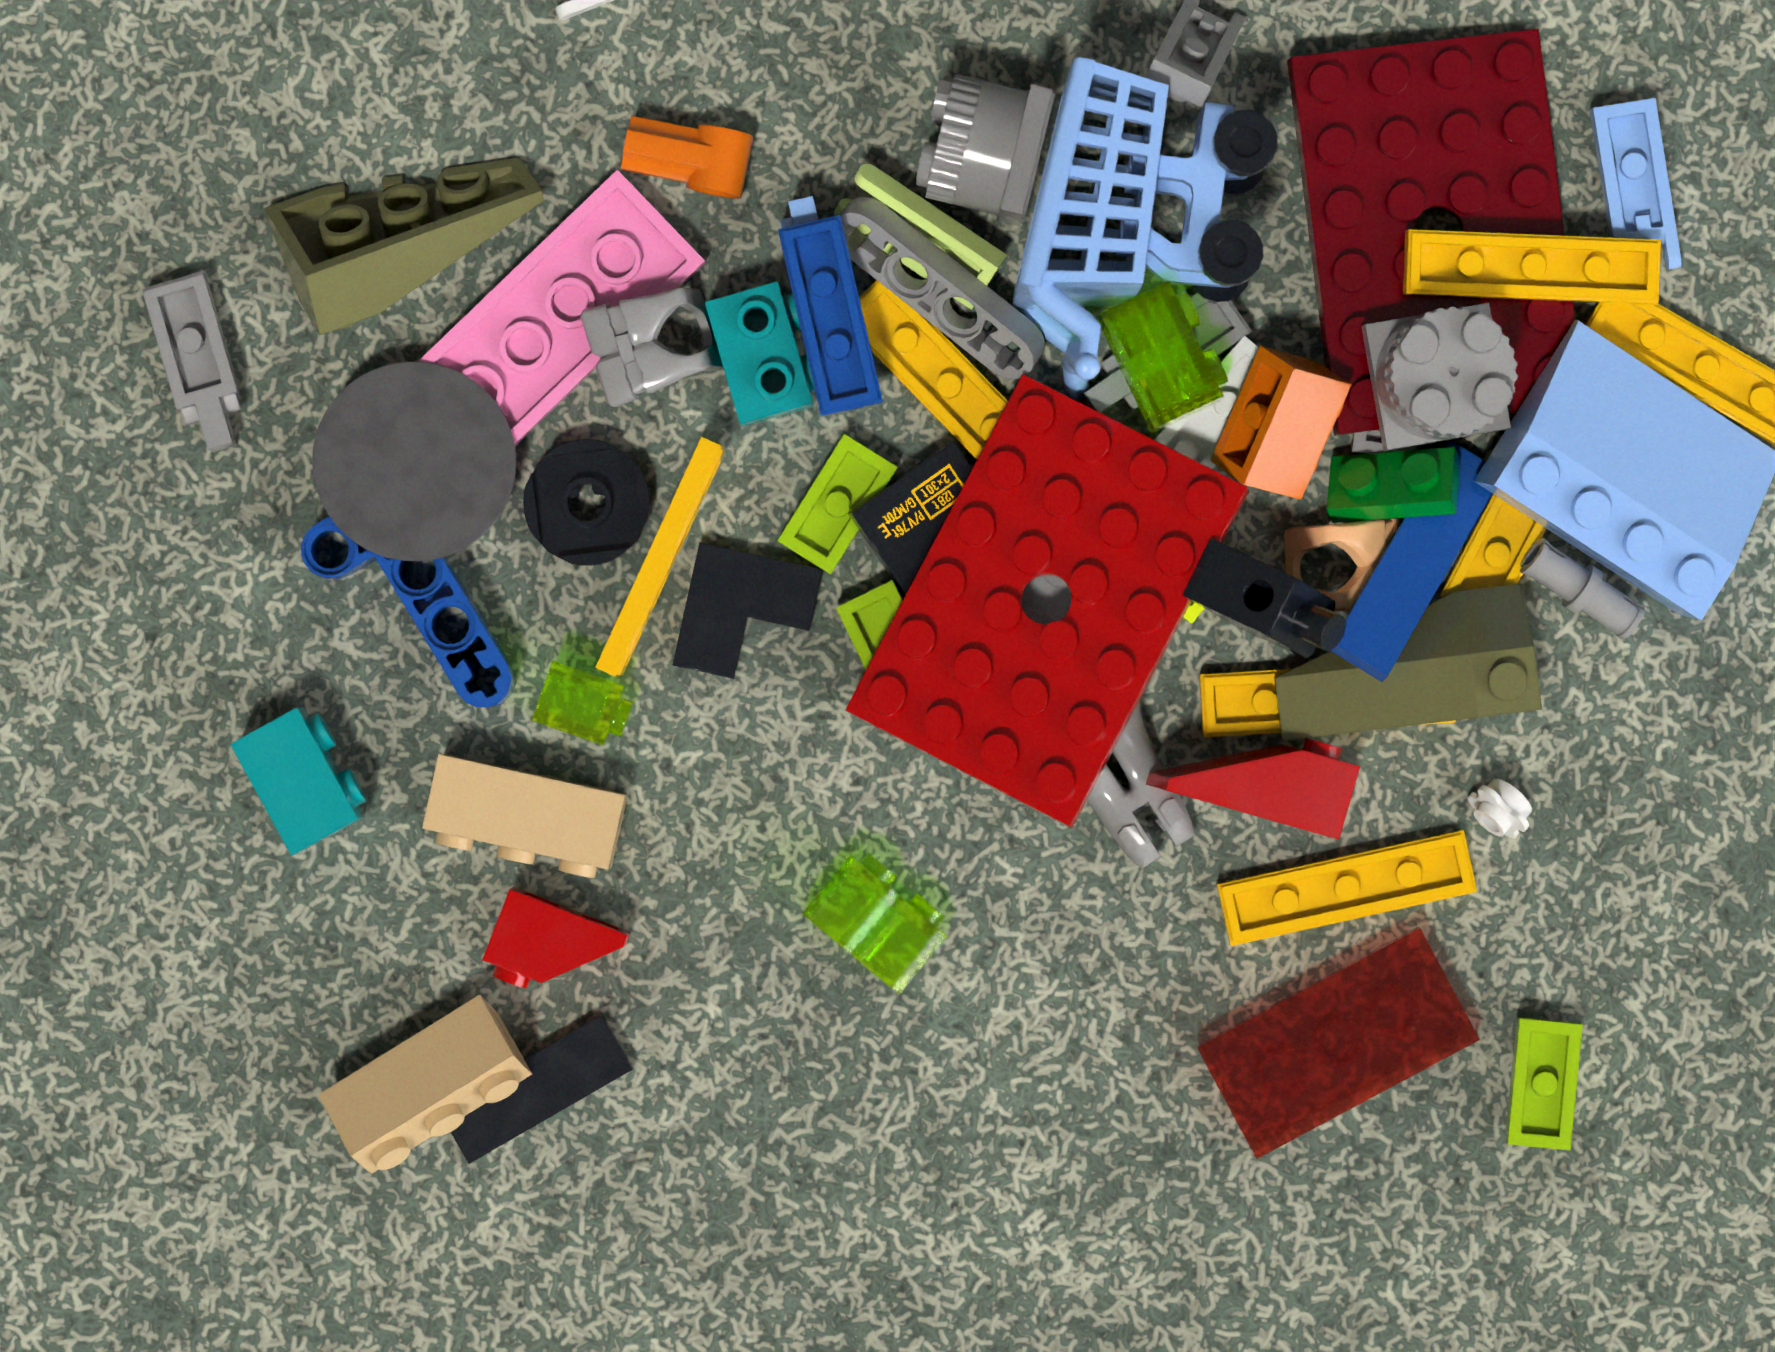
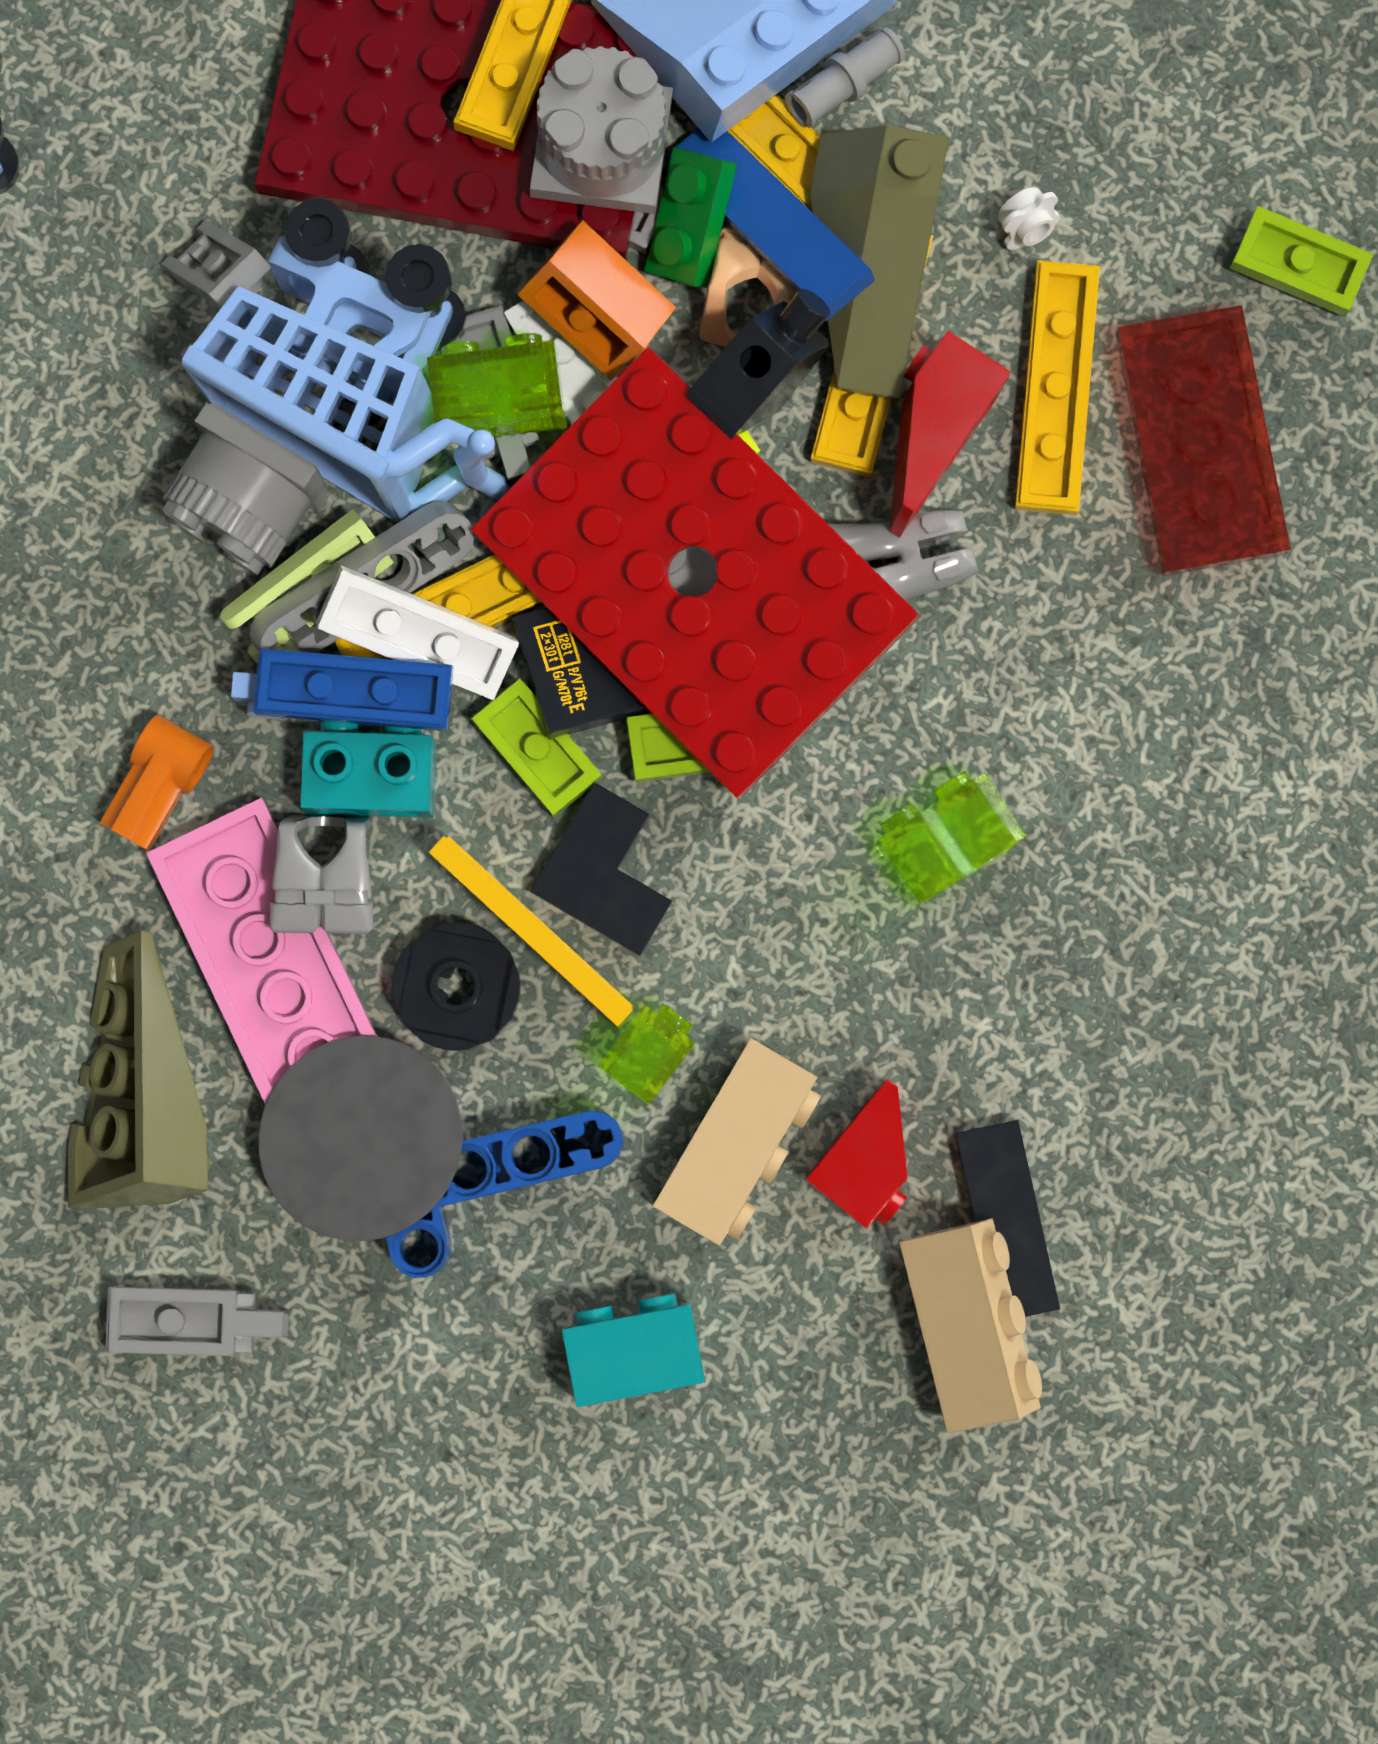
camera: 70 degrees left, 5 degrees down
(907, 356) = (416, 631): none -> white plate

